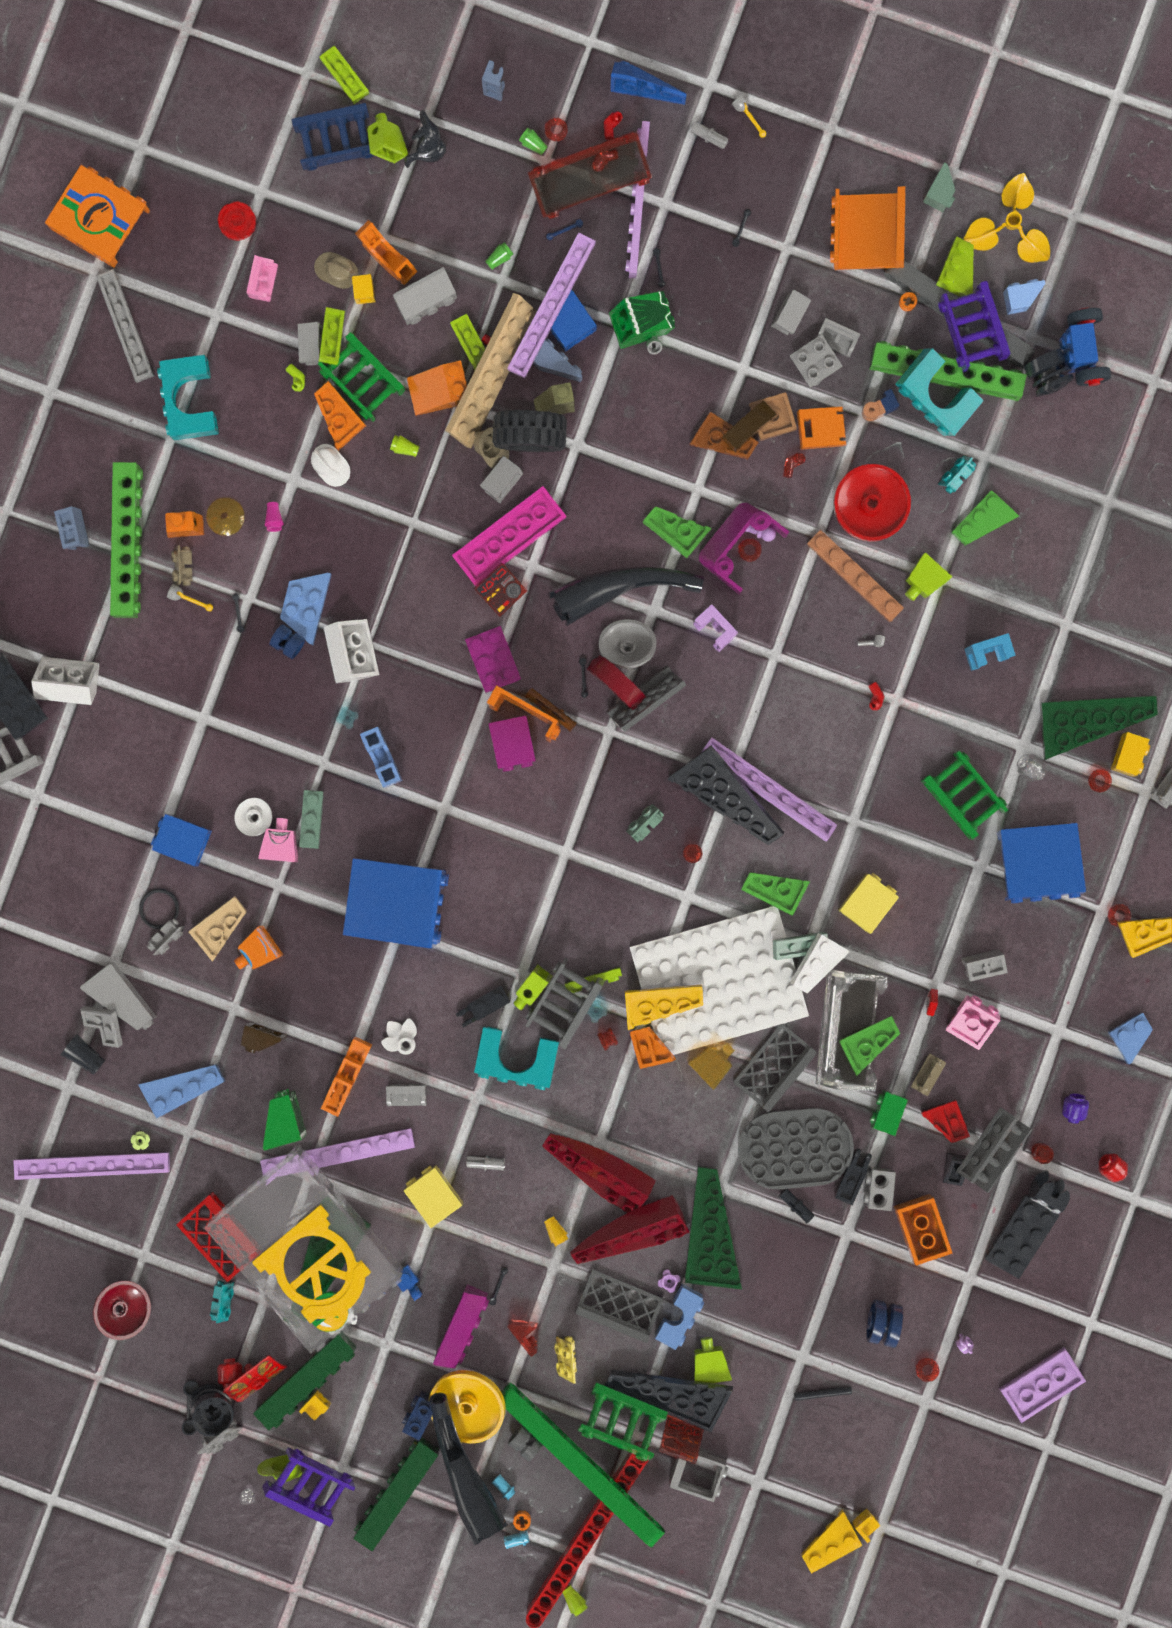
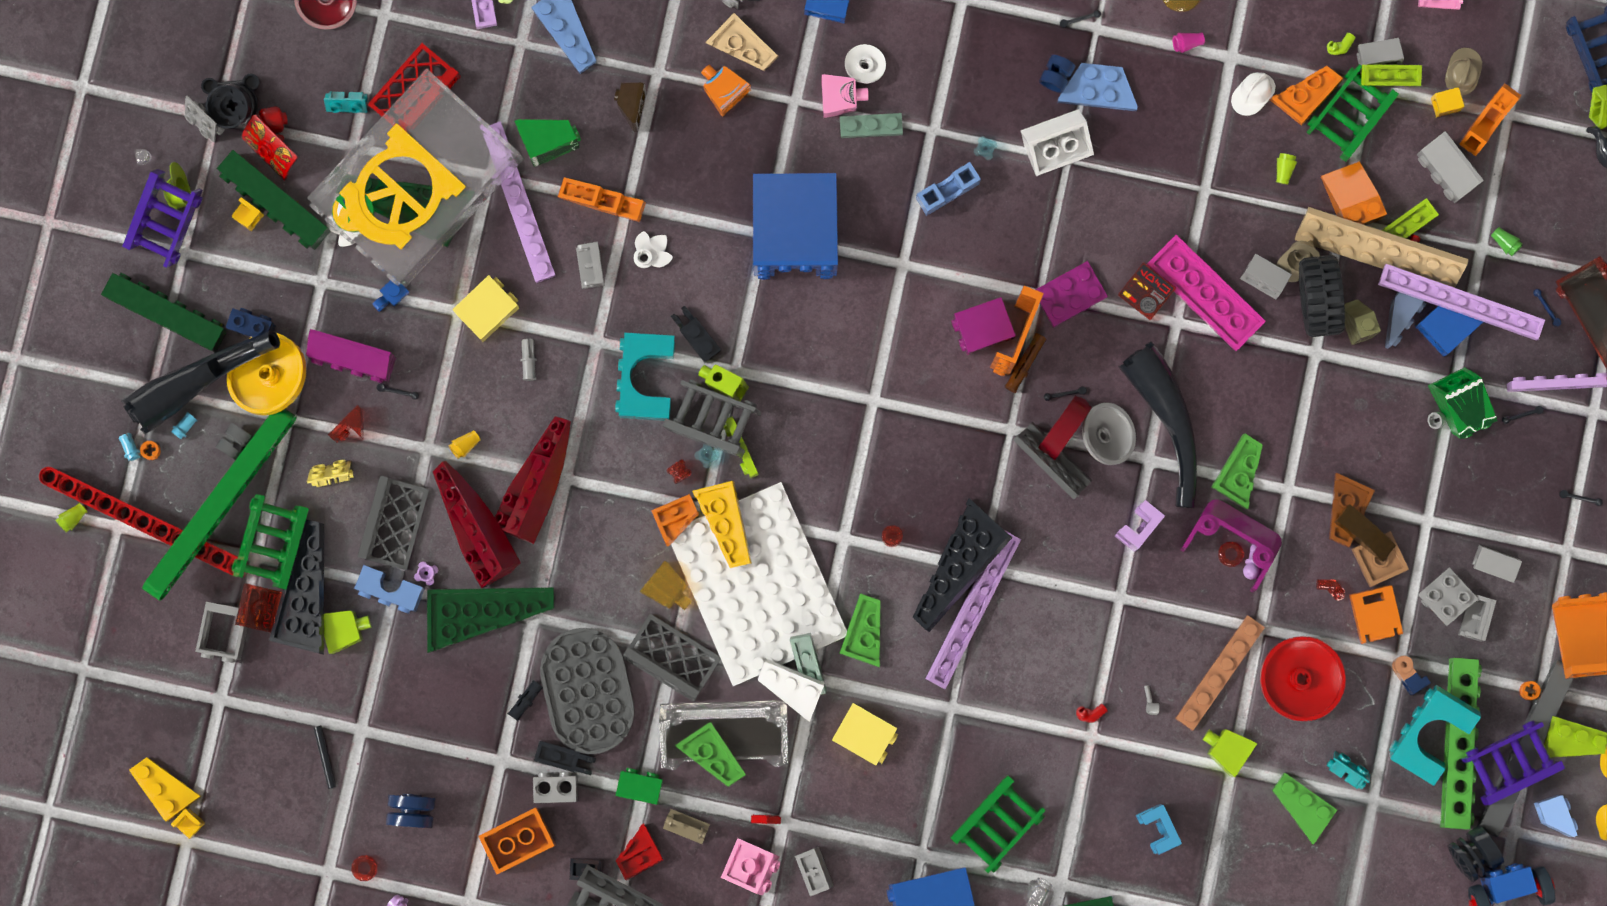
camera: 75 degrees right, 5 degrees down
(638, 828) = (924, 483): sand green hinge -> none

